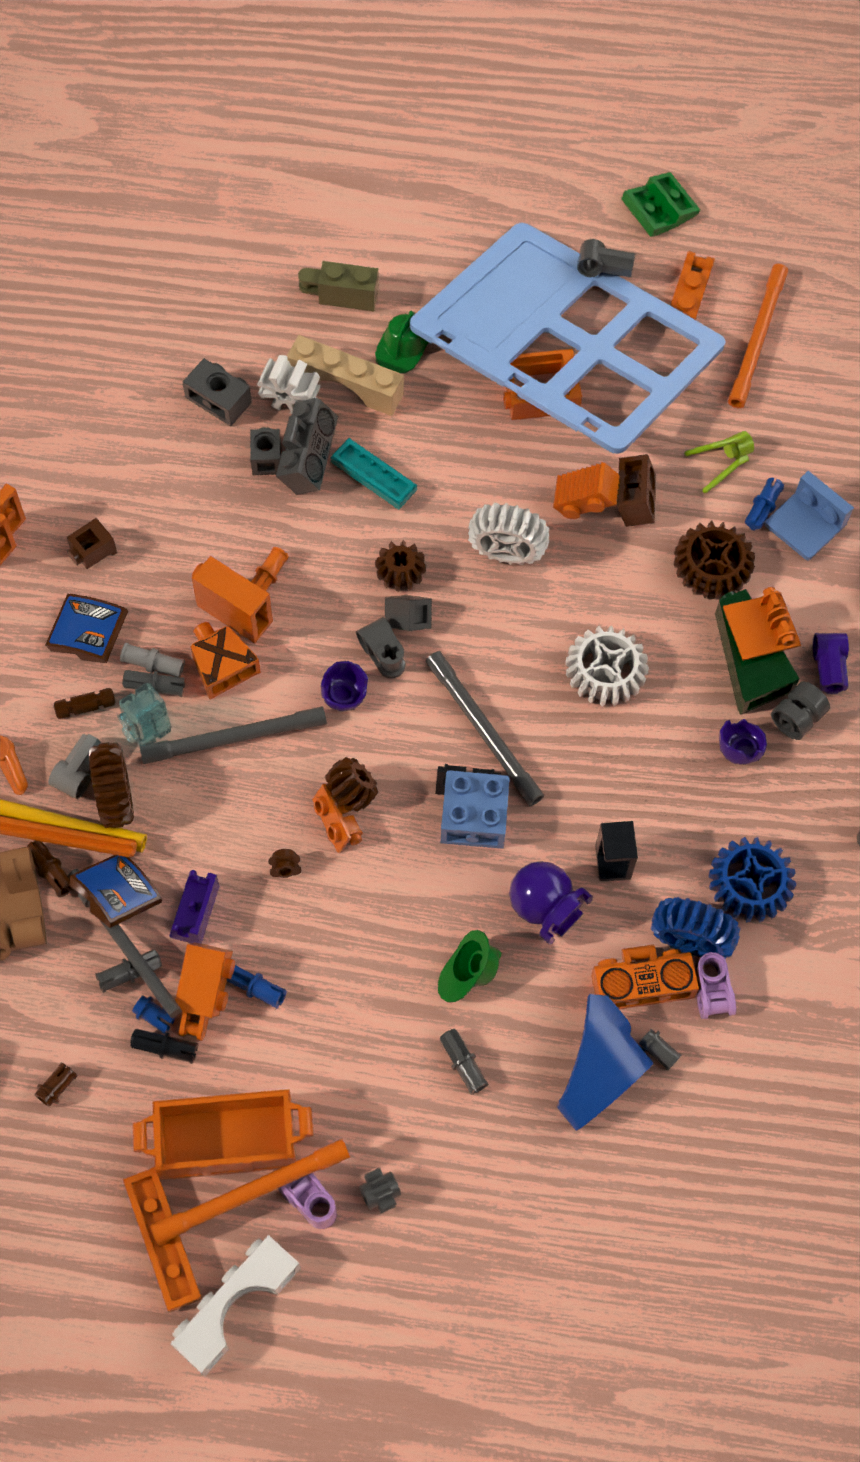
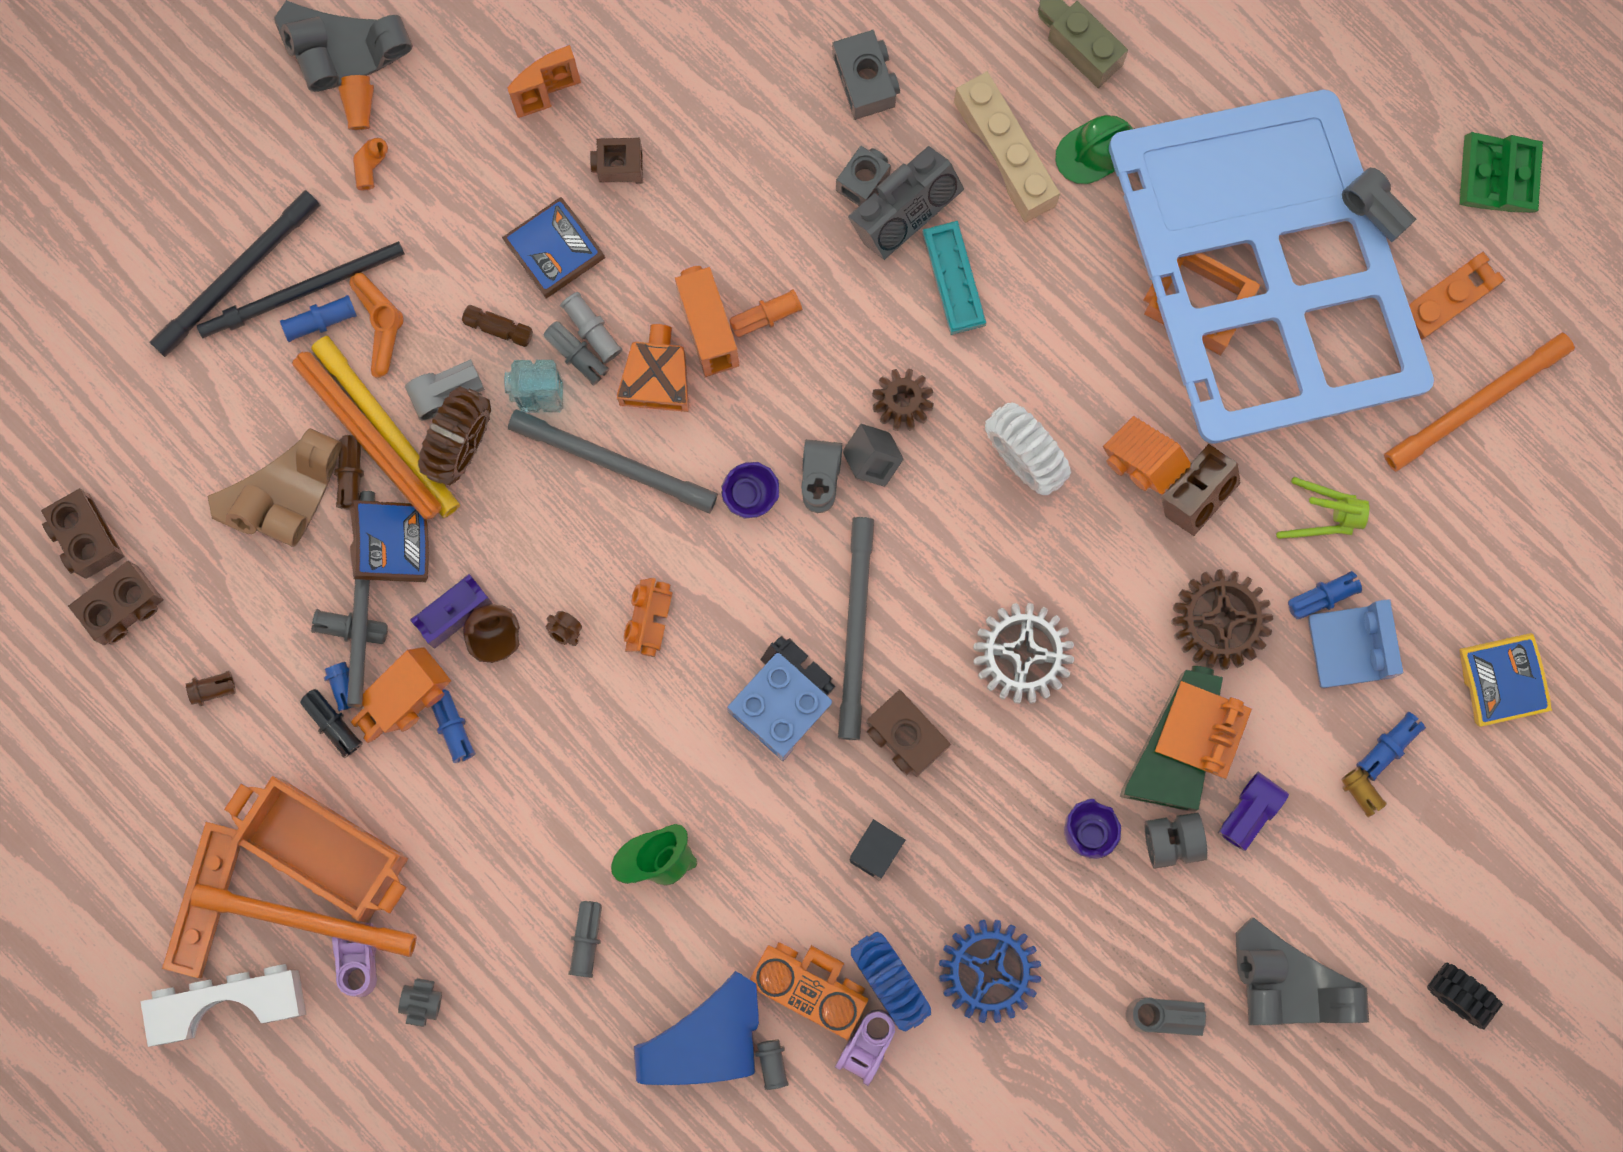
camera: 40 degrees right, 15 degrees up
(236, 900) = (491, 633): none -> reddish brown hair
(287, 383) = (937, 119): white gear -> none
(351, 784) = (680, 597): reddish brown gear -> none
(545, 896) = (775, 844): dark purple tile -> none
(587, 759) = (900, 712): none -> reddish brown brick

